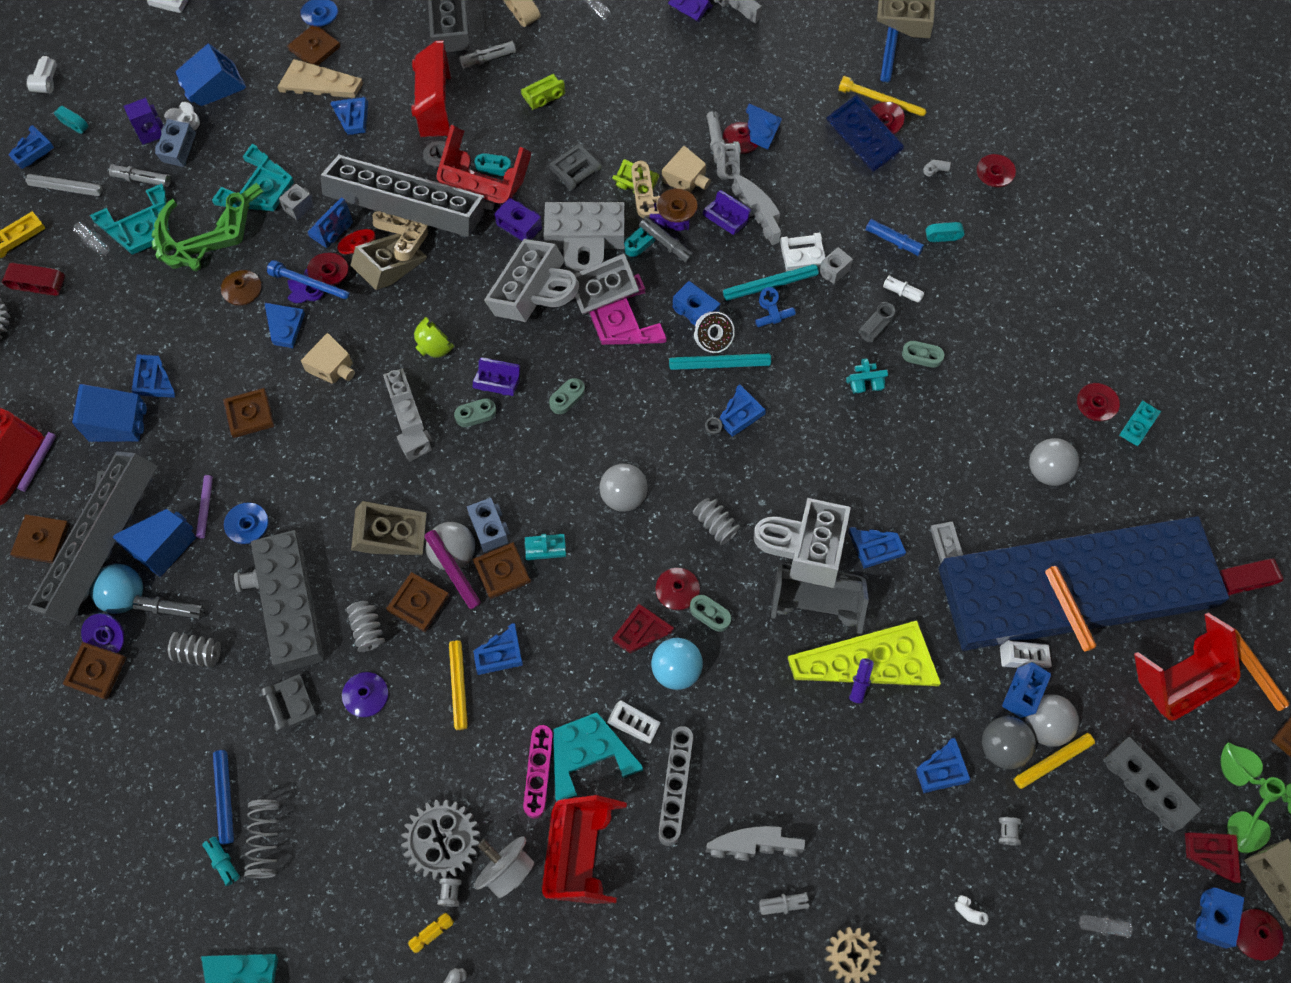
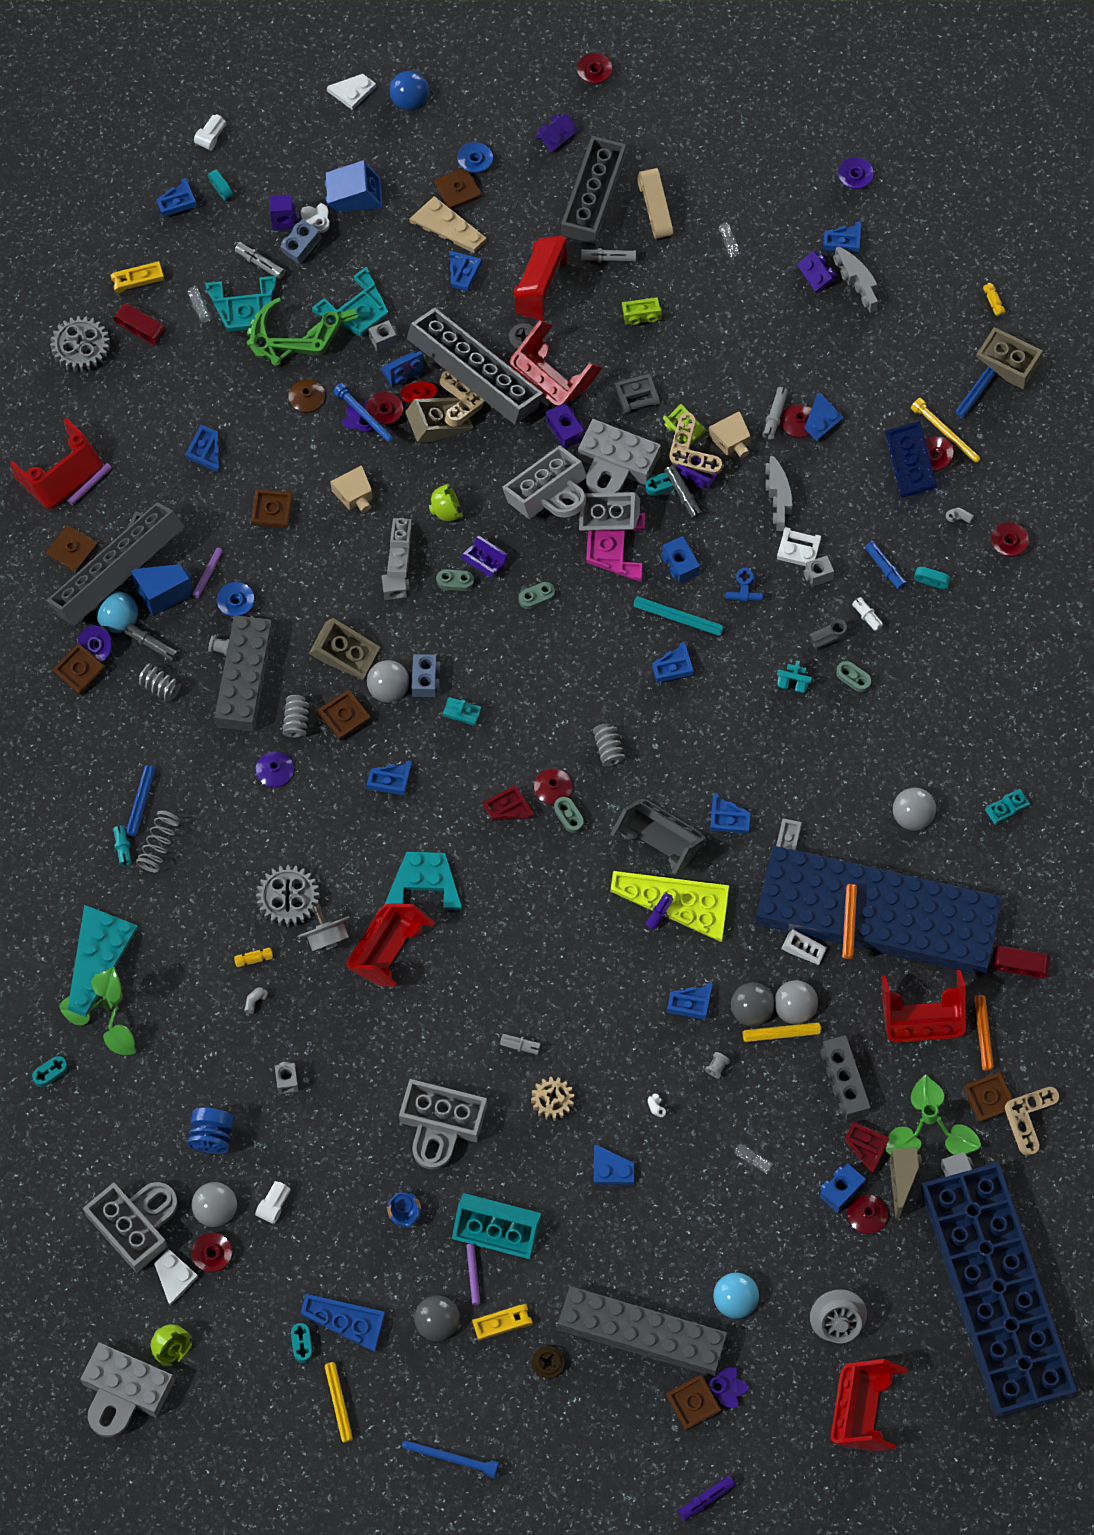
camera: 25 degrees right, 0 degrees up
(64, 184) = (193, 245): light grey axle -> none
(108, 414) = (161, 468): blue slope -> none
(284, 324) = (329, 442): blue wing -> none
(296, 700) = (221, 752): dark grey plate -> none
(444, 899) = (279, 928): light grey bush -> none
(452, 569) = (381, 700): magenta axle -> none
(458, 685) = (348, 790): yellow axle -> none
(493, 164) = (565, 365): teal beam -> none
(501, 570) = (419, 716): reddish brown plate -> none
(538, 771) = (378, 876): dark pink beam -> none
(623, 487) = (547, 689): light grey piece -> none
(629, 710) = (465, 876): white slope -> none
(675, 774) = (479, 938): light grey beam -> none
(677, 199) = (702, 459): reddish brown dish -> none
(677, 663) = (522, 840): medium azure piece -> none
(713, 421) = (644, 663): dark grey hinge -> none
(725, 332) = (691, 596): tile -> none
(727, 212) = (748, 488): dark purple bracket -> none
(728, 158) = (773, 438): light grey piece -> none
(745, 841) = (512, 989): light grey slope -> none
(772, 281) = (755, 563): teal axle -> none
(811, 544) = (672, 792): light grey brick -> none
(1026, 690) = (785, 970): blue brick -> none
(1102, 396) = (979, 767): dark red dish -> none

